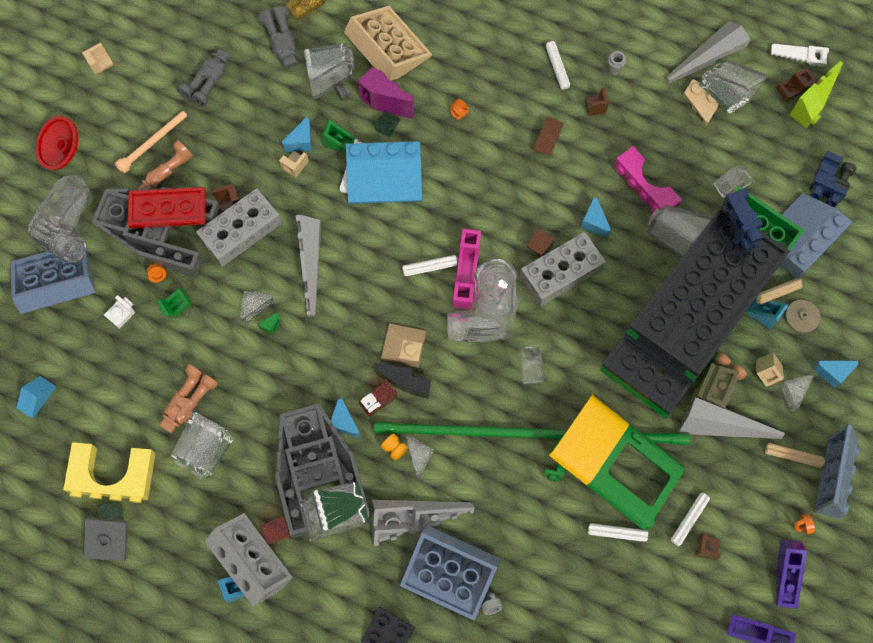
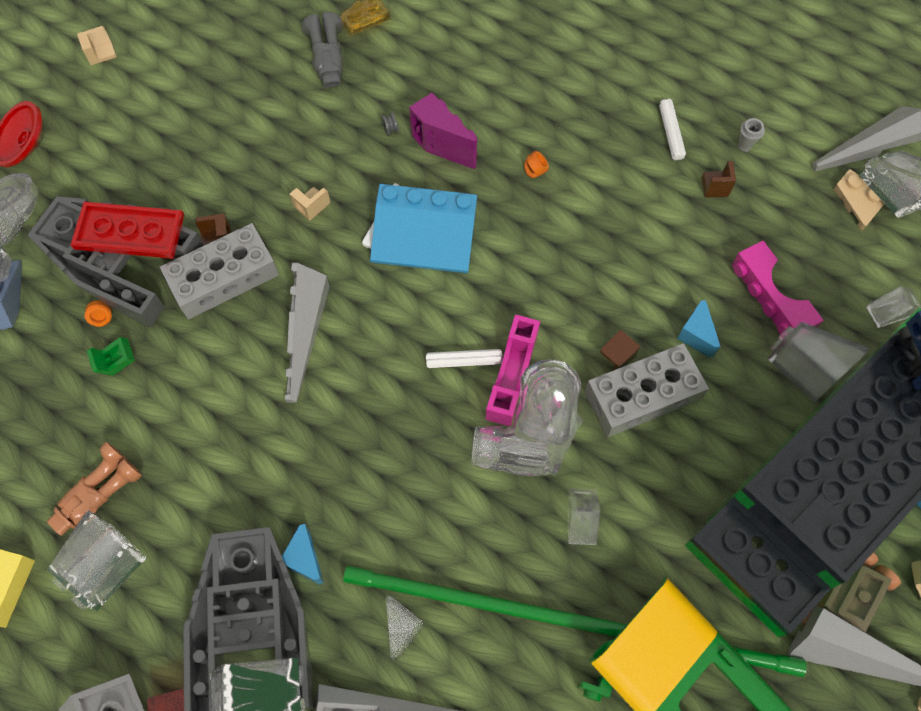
camera: 10 degrees right, 5 degrees down
(120, 312) = (39, 357): white bracket -> none
(125, 163) = (97, 172): light nougat piece -> none
(163, 171) = (141, 186): nougat piece -> none
(210, 73) = (228, 80): dark grey piece -> none
(254, 304) = (215, 375): clear slope -> none
(270, 324) = (232, 404): green slope -> none
(299, 138) = (323, 171): dark azure slope -> none
(328, 67) = (376, 90): clear slope -> none
(336, 137) = (368, 175): green slope -> none
(378, 398) = (358, 532): clear red leg -> none
(386, 42) = (457, 72): tan slope -> none
(387, 124) = (439, 170): clear green slope -> none
(394, 447) = (365, 605): light orange wheel -> none
(403, 345) = (408, 462): tan slope -> none
(404, 380) = (400, 511): black slope -> none
(548, 136) = (648, 214): reddish brown slope -> none

